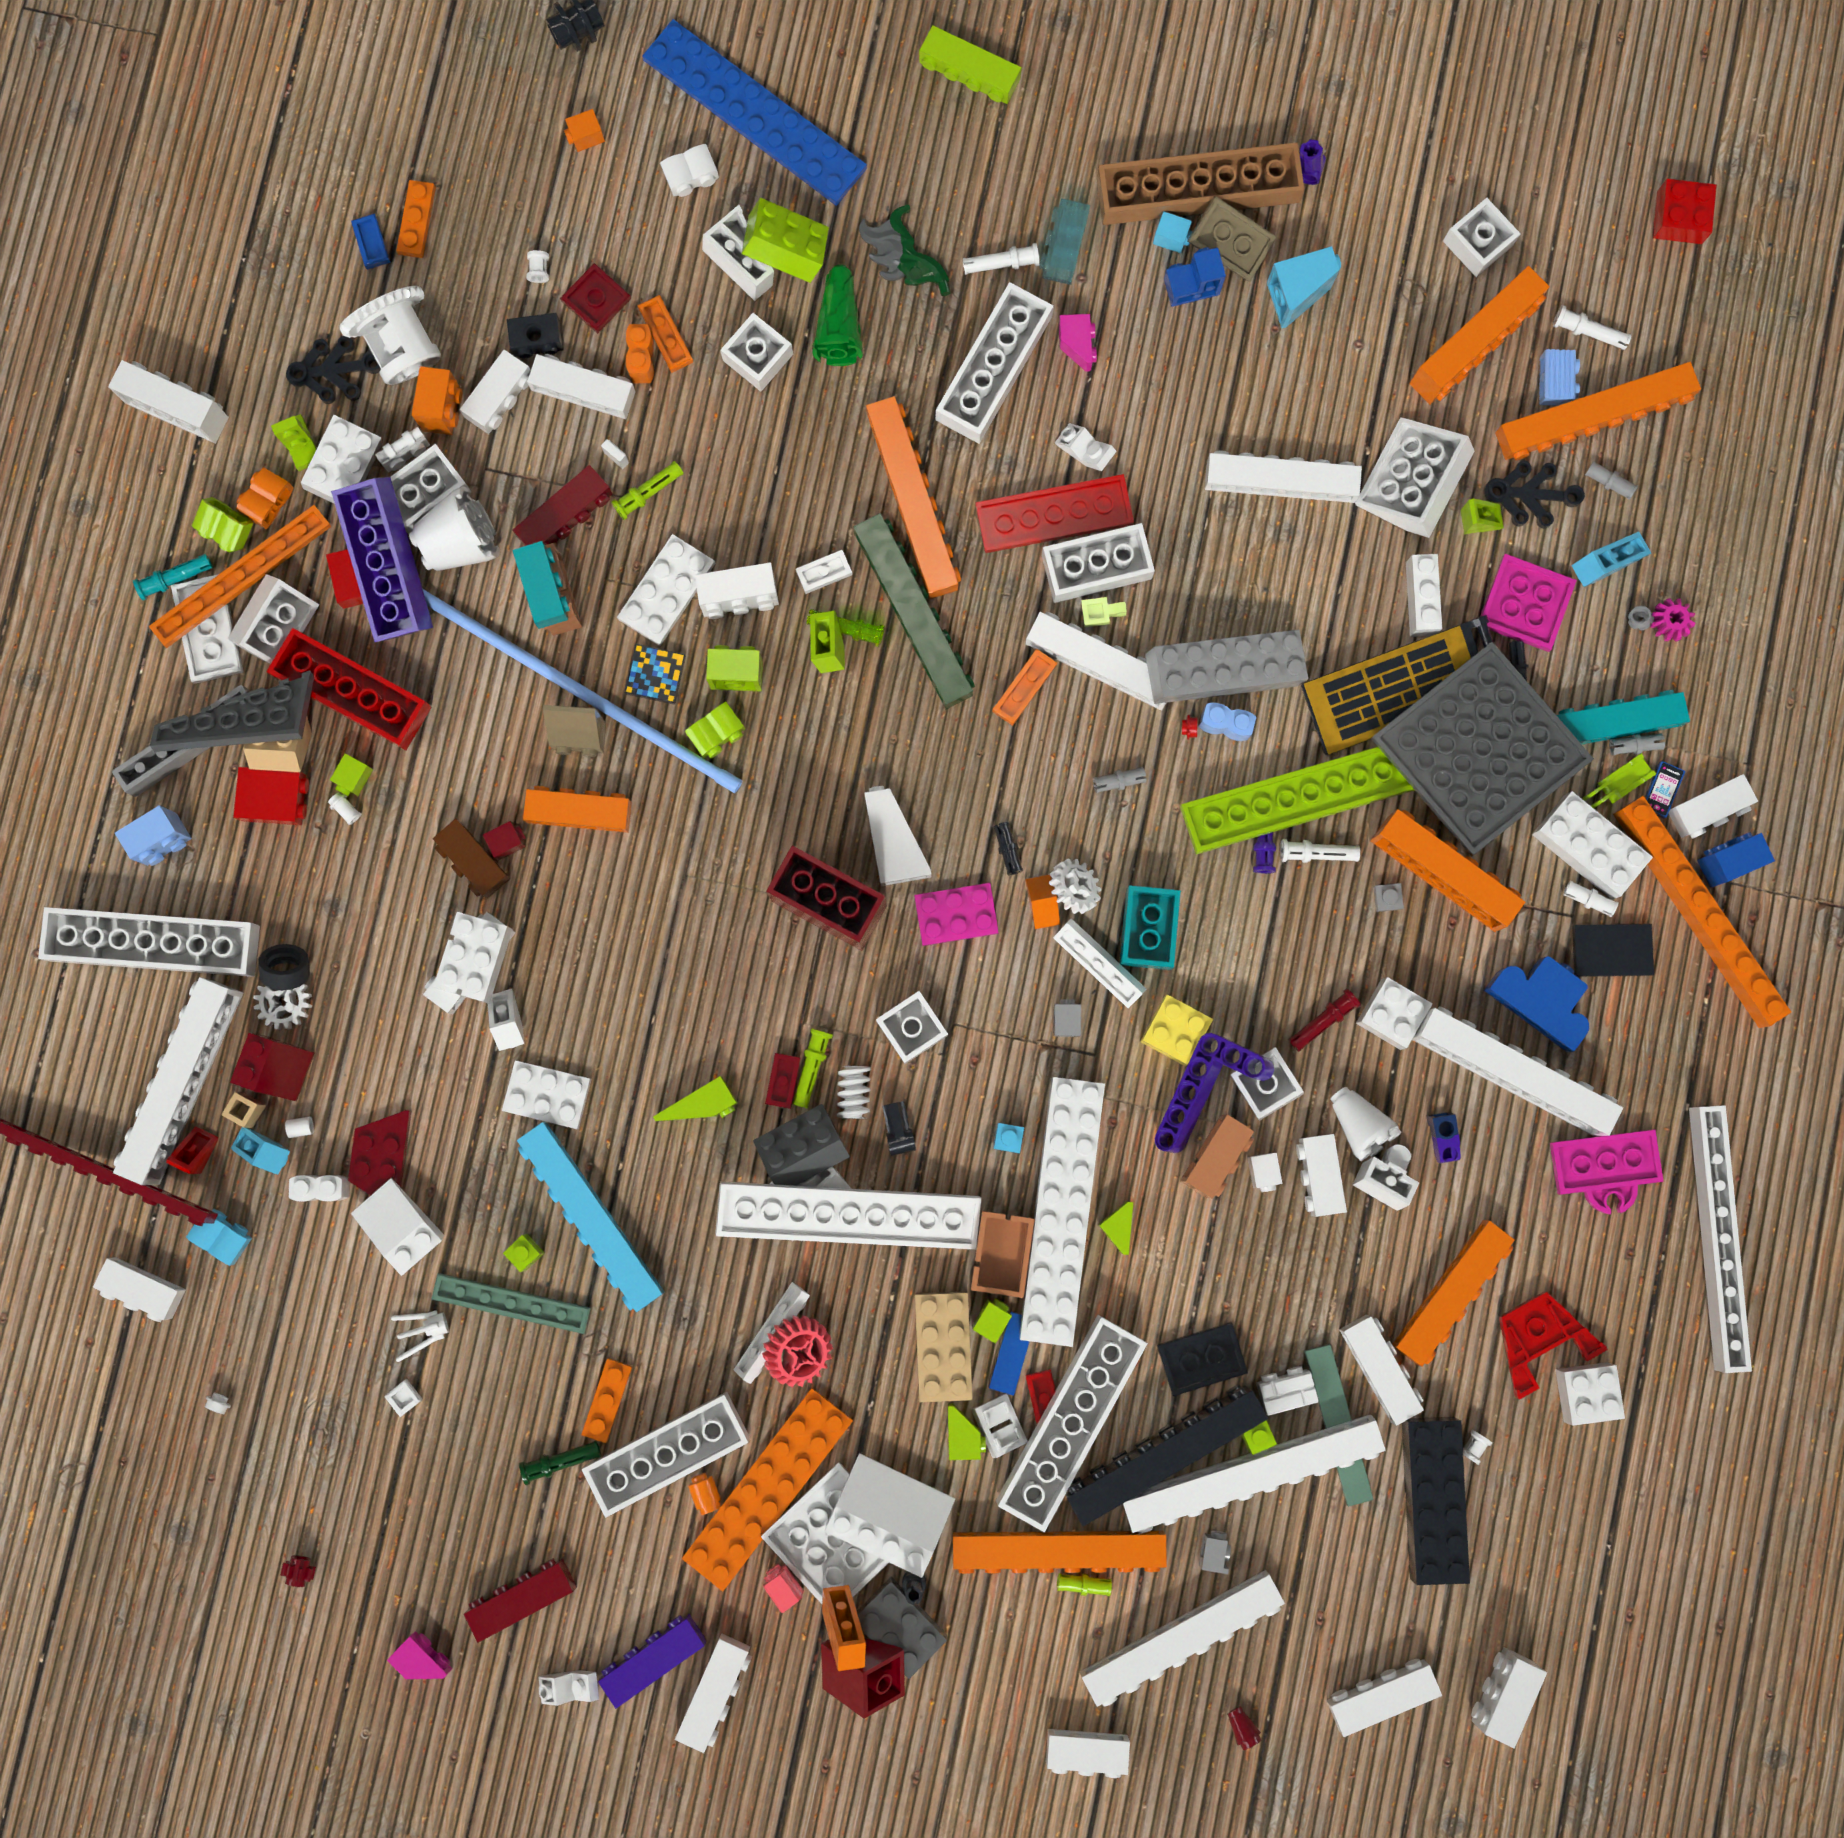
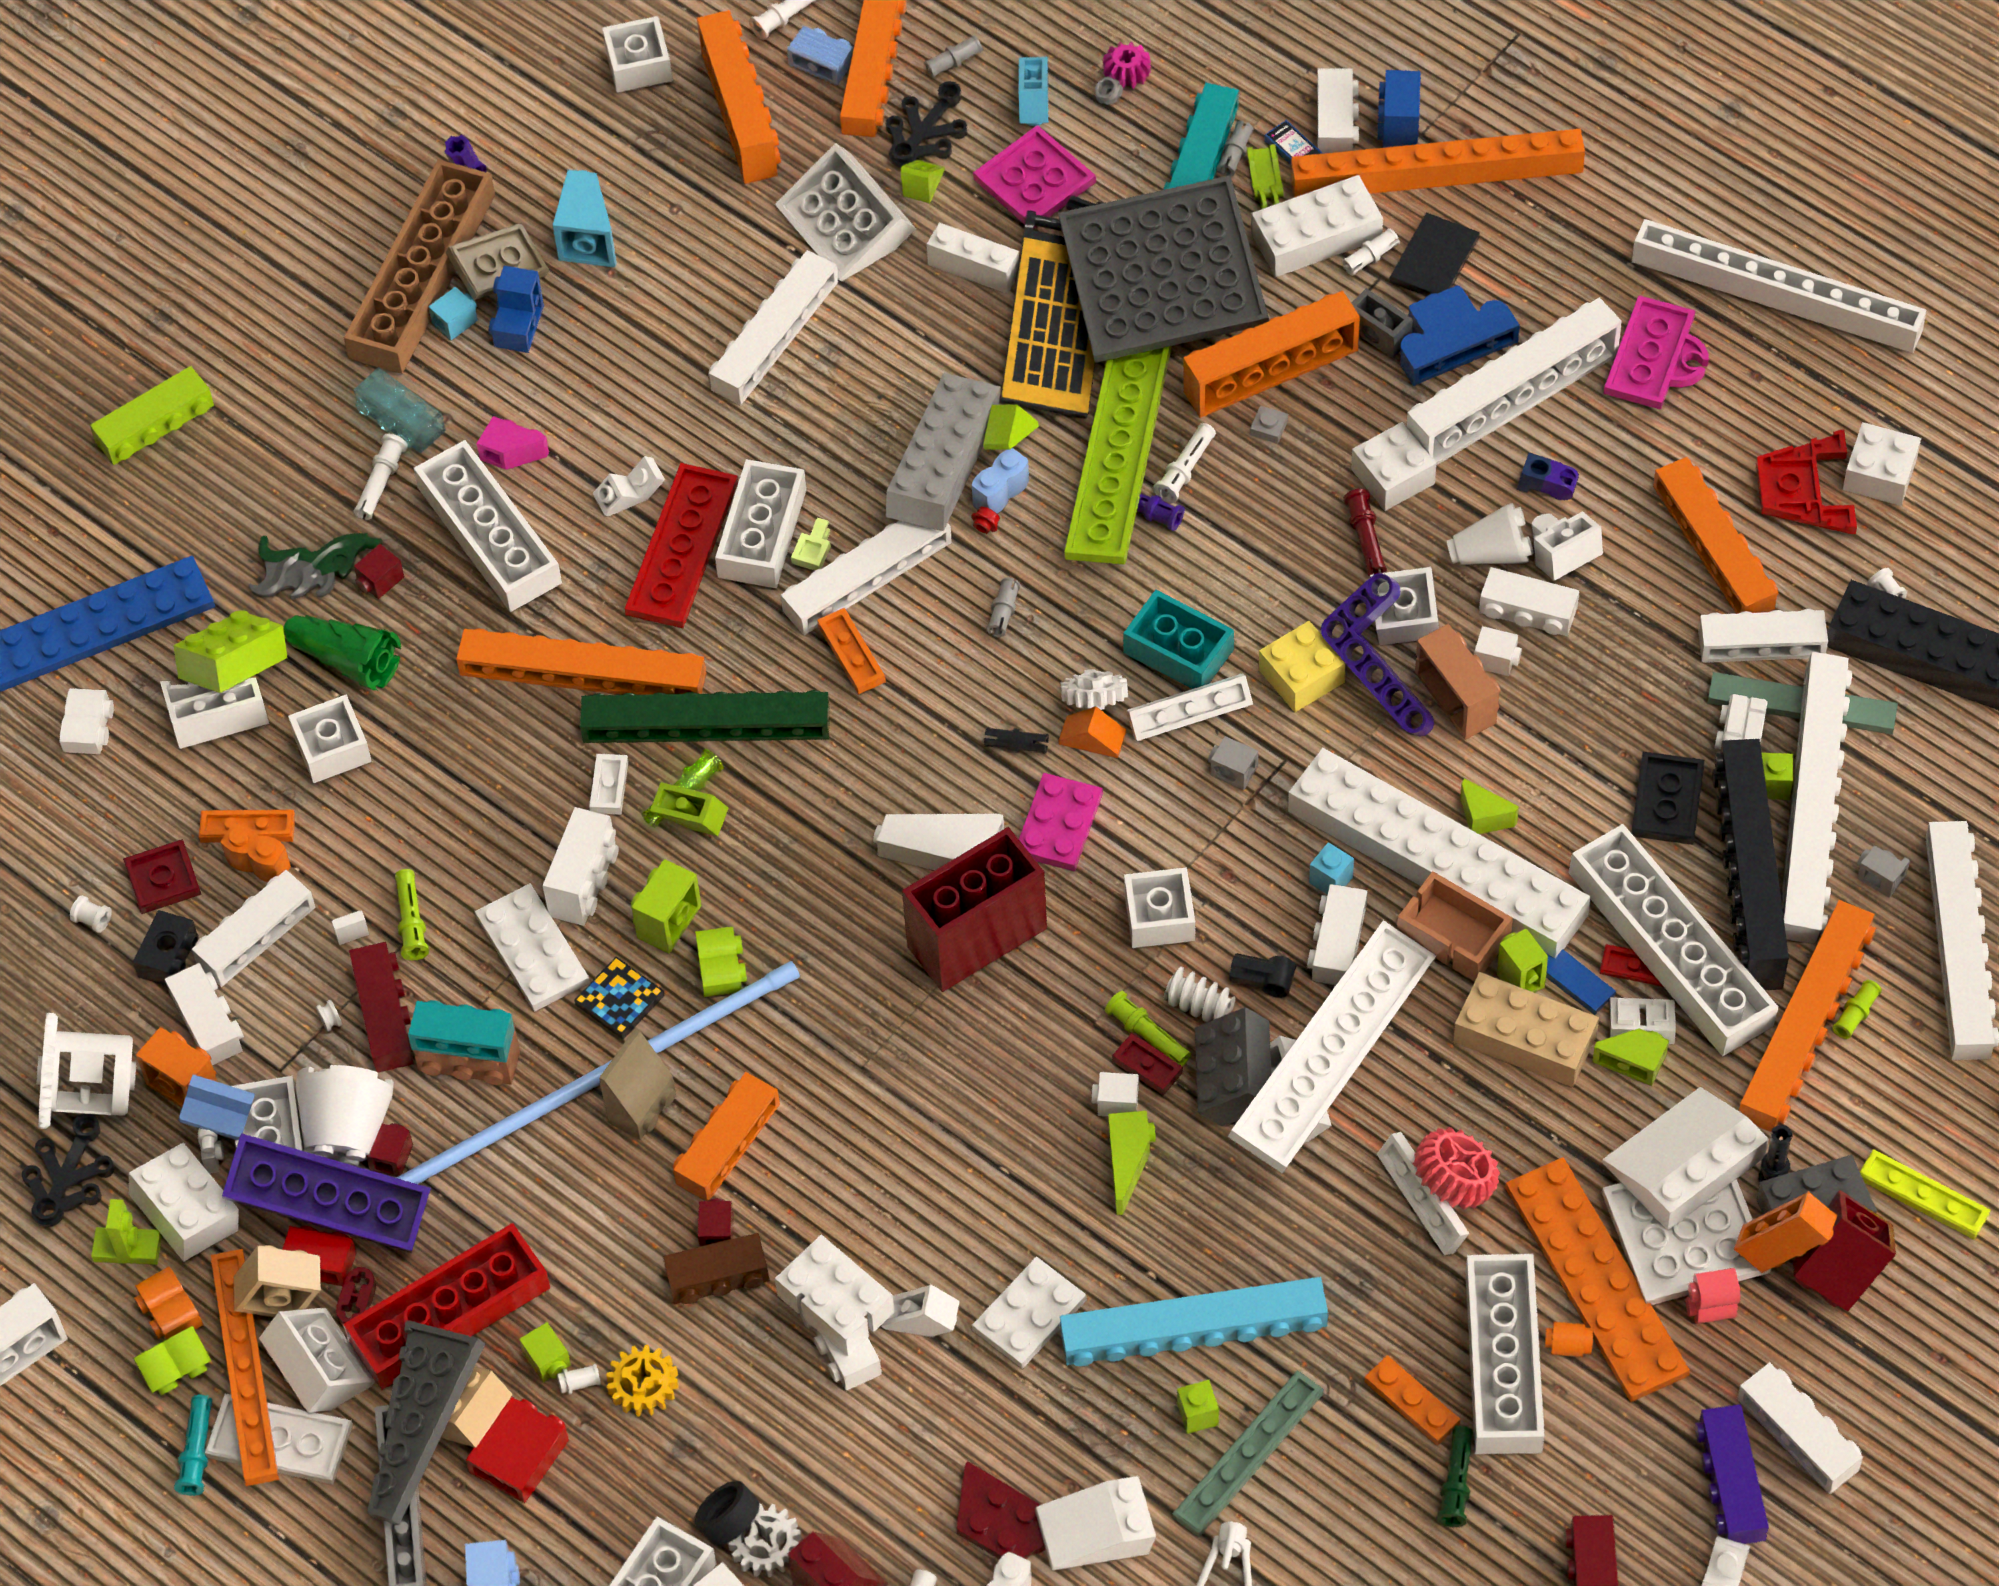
camera: 60 degrees left, 25 degrees down
(301, 564) = (276, 1281): none -> tan brick
(332, 616) = (349, 1294): none -> dark red beam
(366, 863) = (653, 1389): none -> yellow gear
(404, 446) = (216, 1107): none -> medium blue panel
(455, 582) = (390, 1150): none -> dark red brick
(538, 479) = (328, 1015): none -> white bush
(745, 1071) = (1116, 1093): none -> white brick
(917, 306) = (378, 572): none -> dark red brick
(953, 1700) = (1924, 1194): none -> neon yellow tile
(957, 1168) = (1338, 933): none -> white brick
(1273, 704) = (1007, 427): none -> lime slope
(1521, 940) = (1381, 323): none -> dark grey brick

